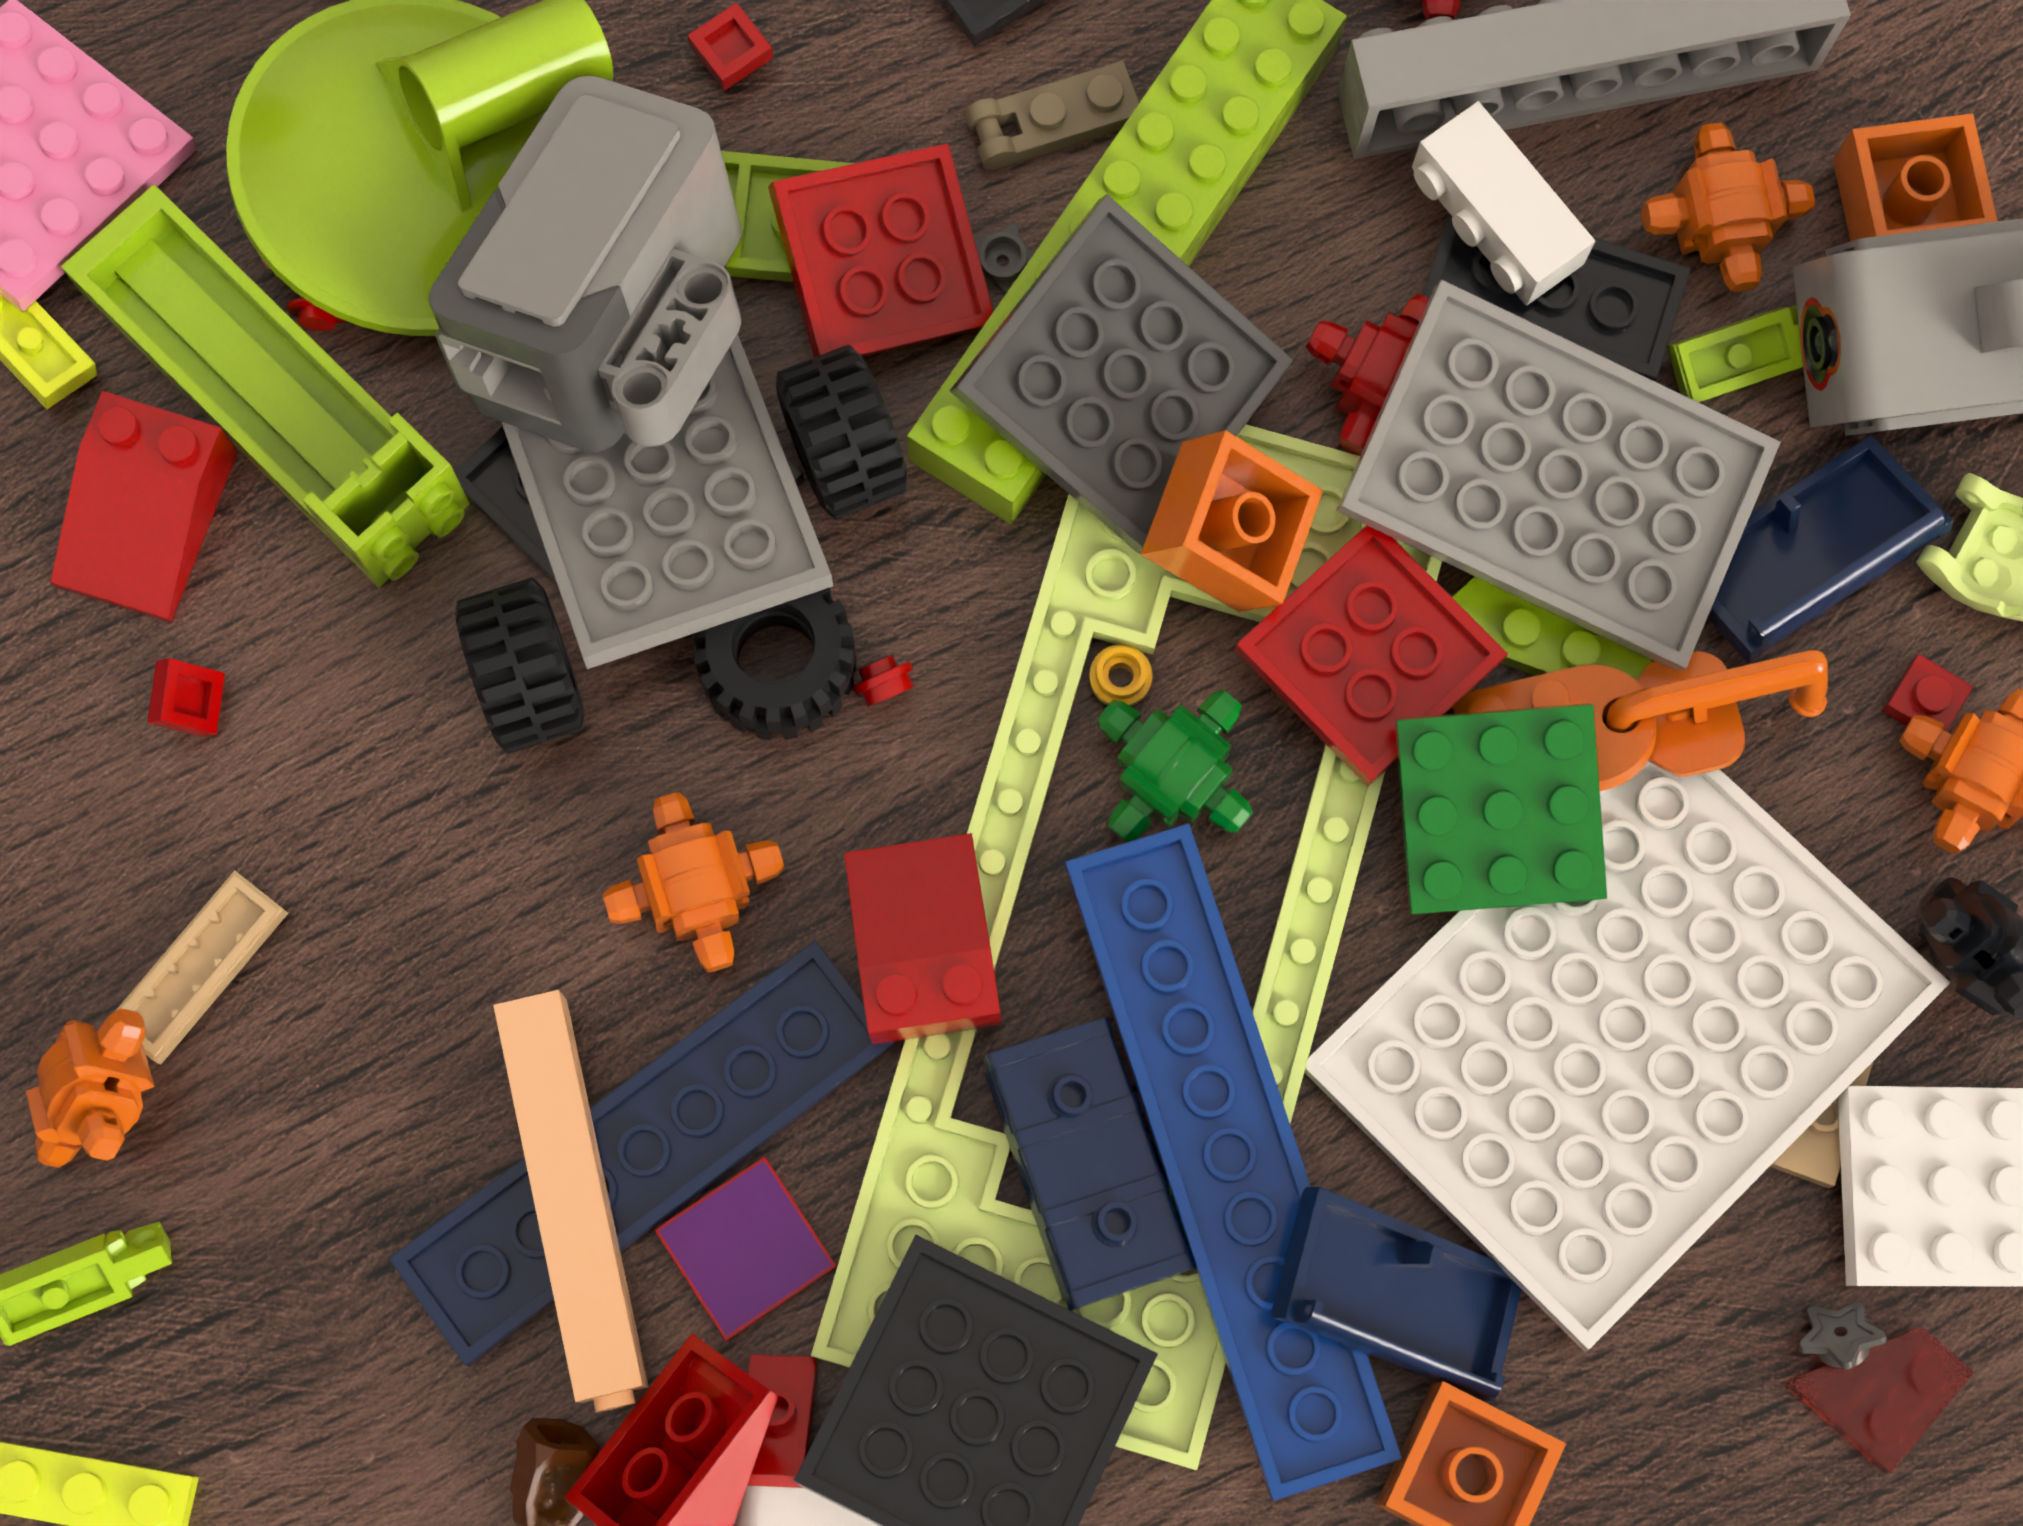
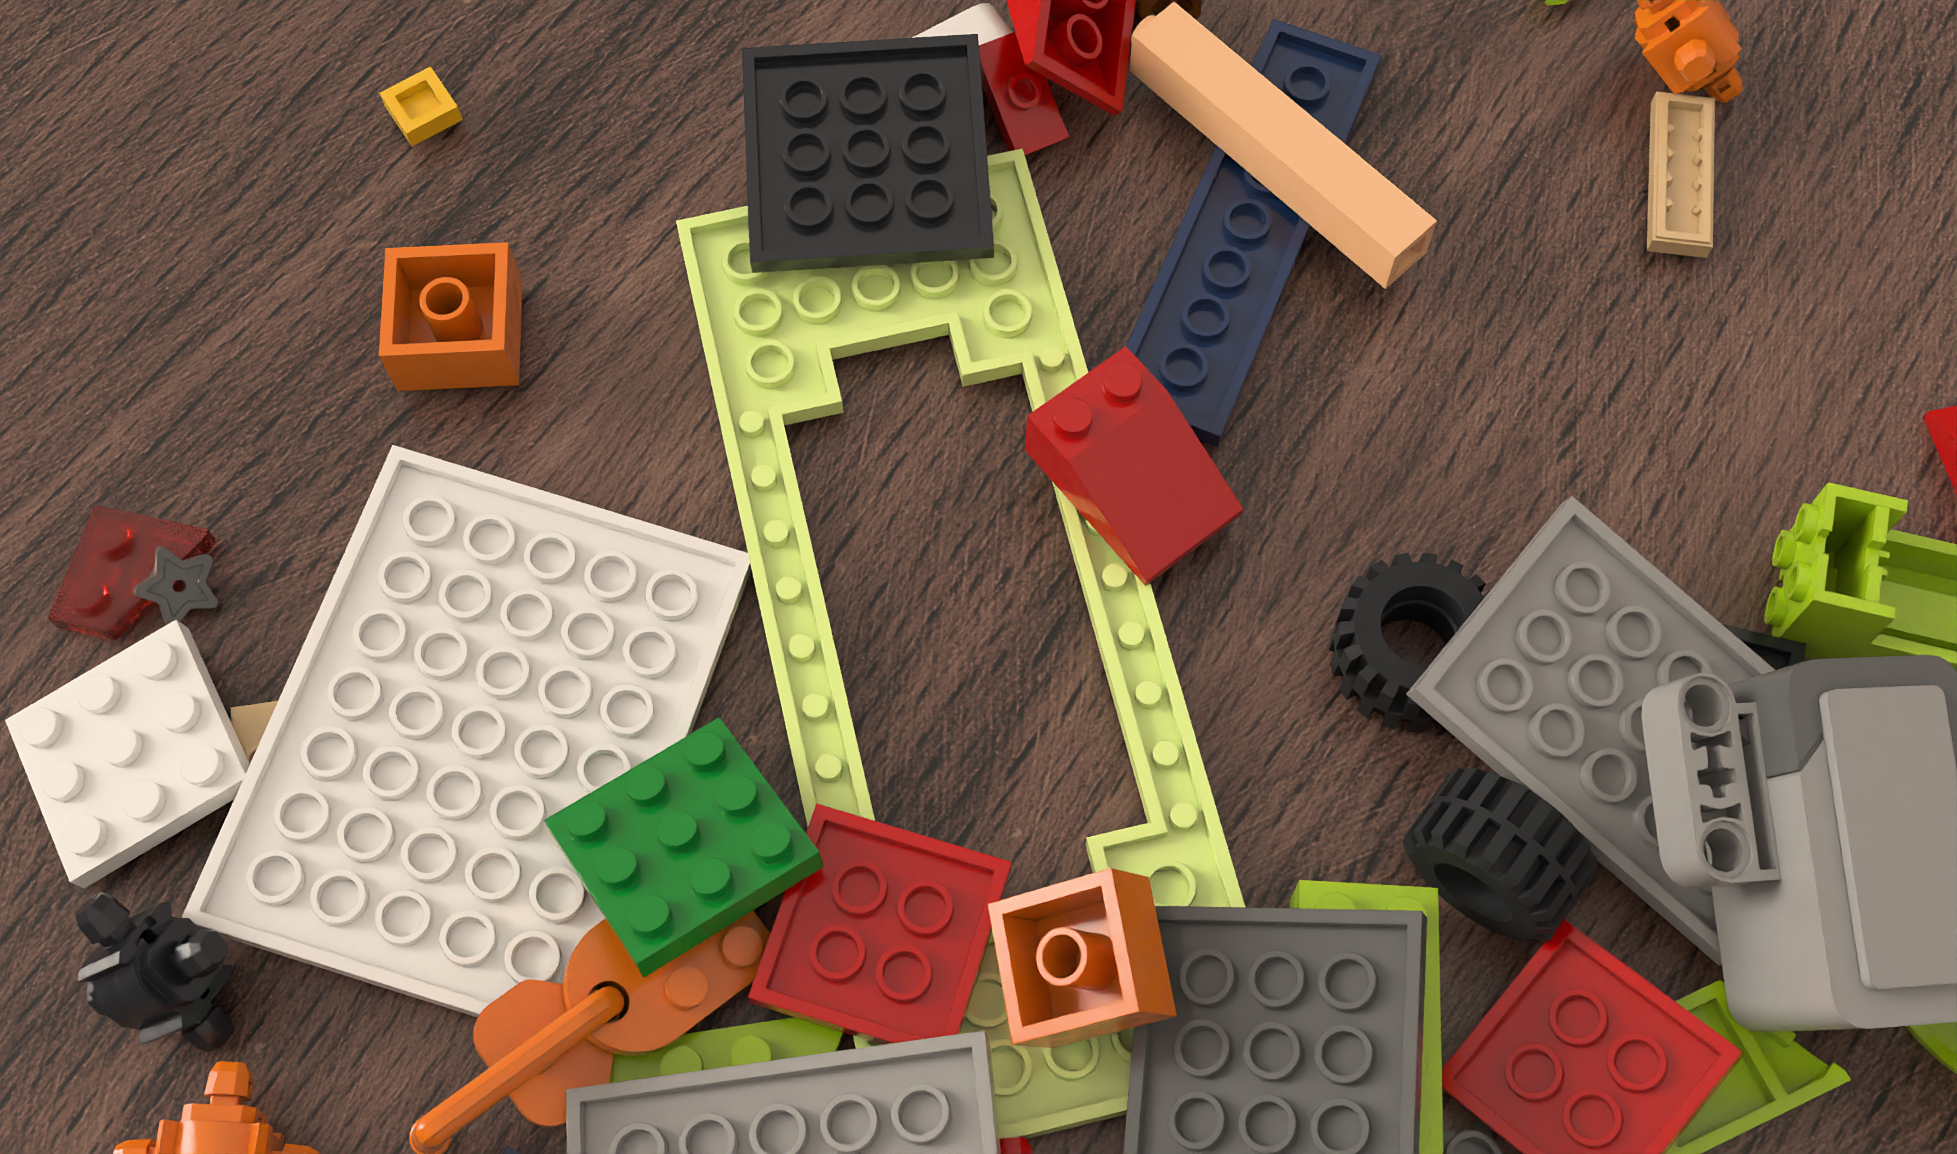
camera: 155 degrees right, 10 degrees down
(186, 697) = (1860, 350): red plate -> none
(519, 665) = (1628, 480): black tyre -> none
(693, 882) = (1350, 424): orange piece -> none
(745, 1249) = (1121, 206): dark purple tile -> none
(883, 680) = (1307, 680): red plate -> none
(1087, 1163) = (887, 376): dark blue container -> none
(1126, 658) = (1107, 789): yellow plate -> none
(1174, 766) = (1004, 738): green piece -> none
(1224, 1153) = (784, 446): blue plate -> none
(1397, 1293) = (576, 392): dark blue container -> none

